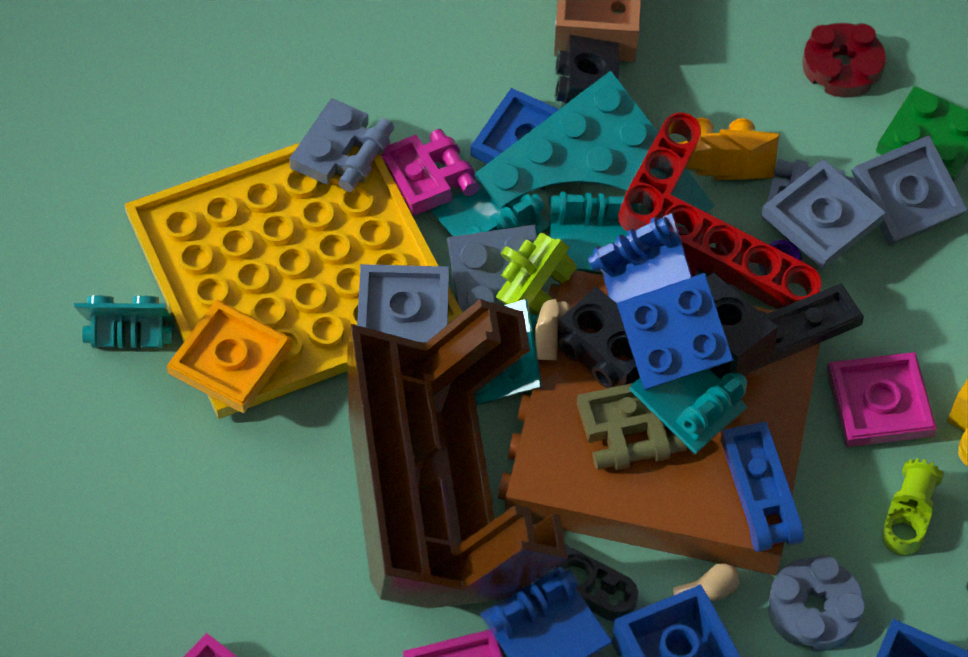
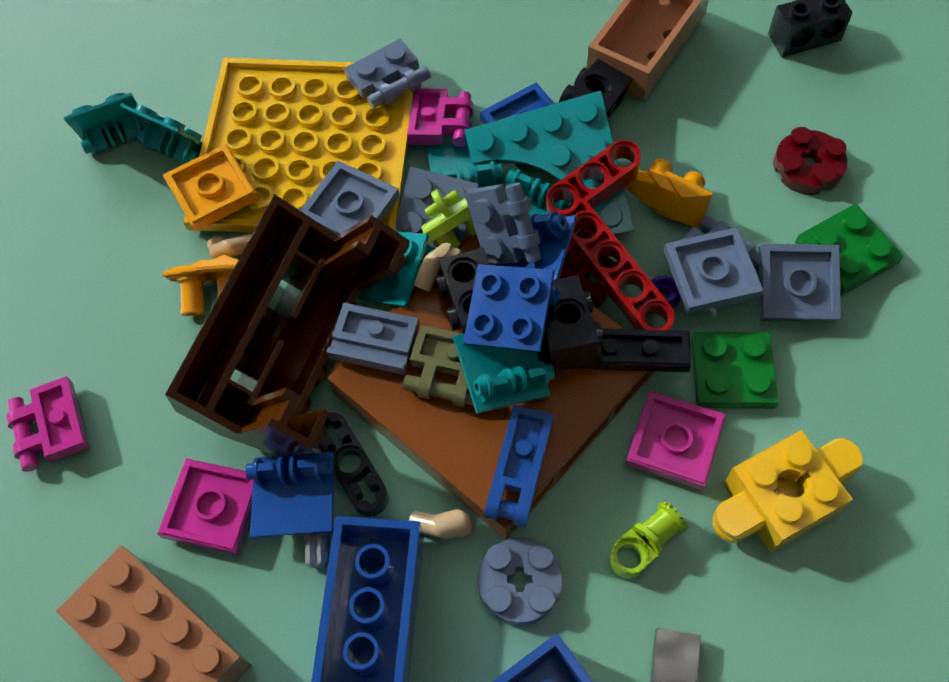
camera: 35 degrees right, 5 degrees up
(56, 331) = (91, 122): none -> teal hinge
(296, 409) = (230, 247): none -> tan arm
(307, 442) = (192, 278): none -> light orange connector
(534, 432) = (373, 338): none -> sand blue plate
(595, 259) = (495, 226): none -> sand blue plate
(897, 306) = (734, 370): none -> green plate

